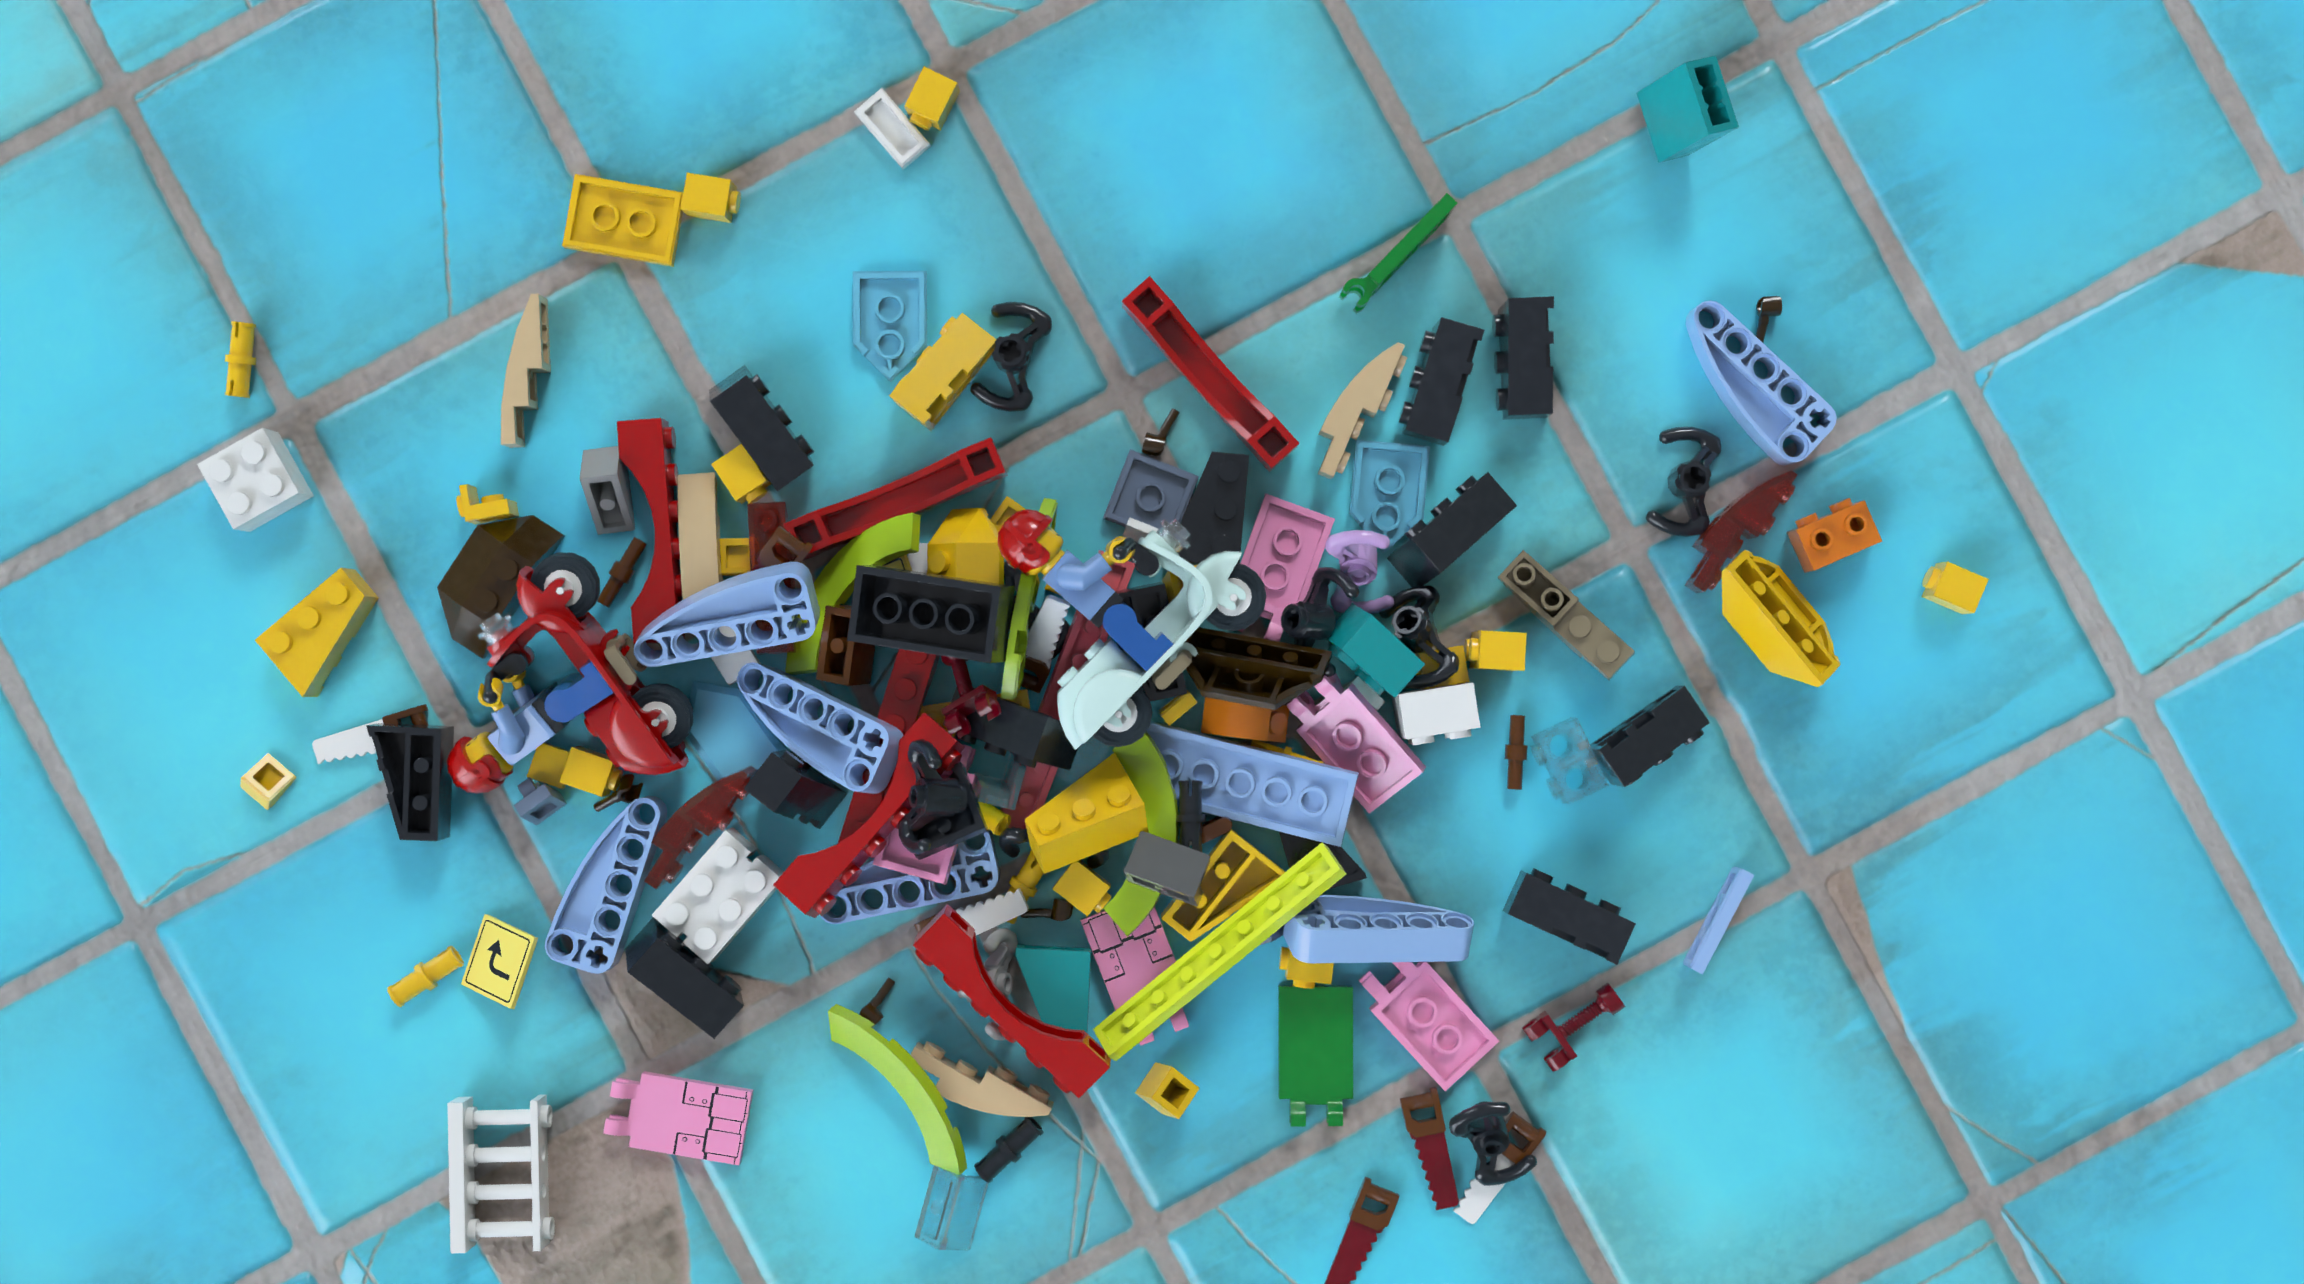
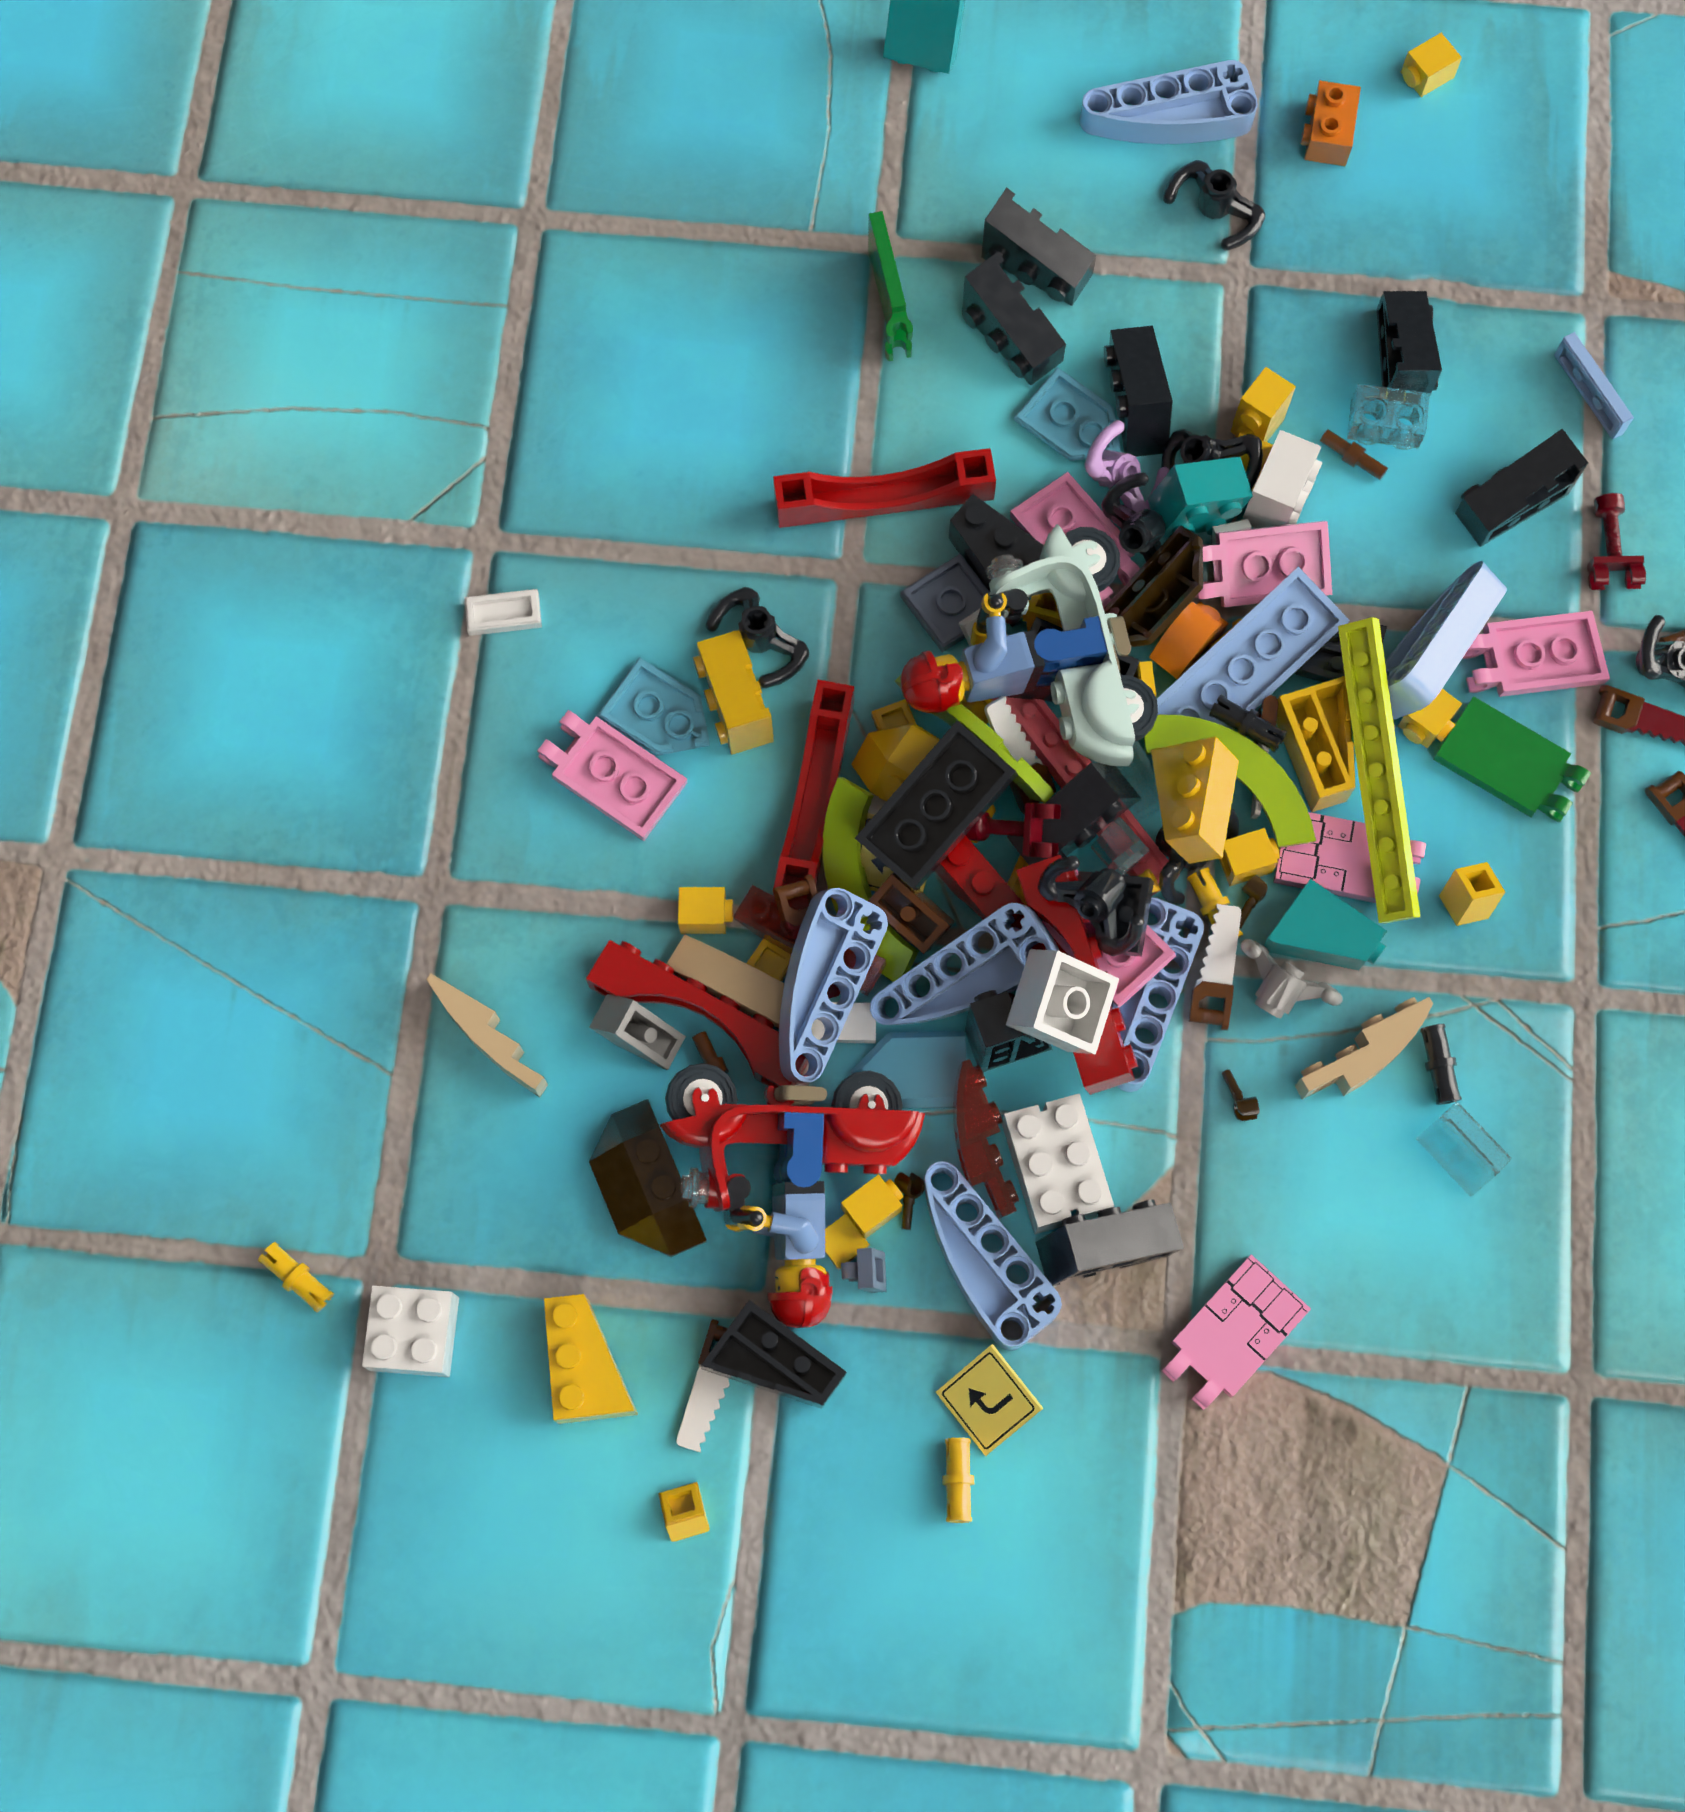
camera: 55 degrees left, 15 degrees down
(466, 1192) = (1149, 1549): white fence -> none
(491, 509) = (583, 1142): yellow bracket -> none
(623, 220) = (418, 873): yellow tile -> none
(710, 198) = (453, 786): yellow brick -> none
(761, 427) = (673, 862): black wedge -> none
(810, 320) = (613, 774): none -> bright pink tile
(816, 827) = (1062, 1001): none -> white brick
(909, 1080) = (1324, 1102): lime tile -> none
(931, 99) = (503, 562): yellow brick -> none
(1066, 1053) = (1240, 975): red arch -> none
(1153, 443) = (909, 570): dark brown hand -> none
(1167, 868) = (1282, 760): dark grey panel -> none
(1363, 395) = (983, 395): tan slope -> none
(1565, 615) = (1277, 348): dark tan slope -> none
(1744, 516) = (1273, 182): clear red slope -> none
(1767, 307) = (1116, 67): dark brown hand -> none
(1777, 620) = (1376, 201): yellow wedge -> none

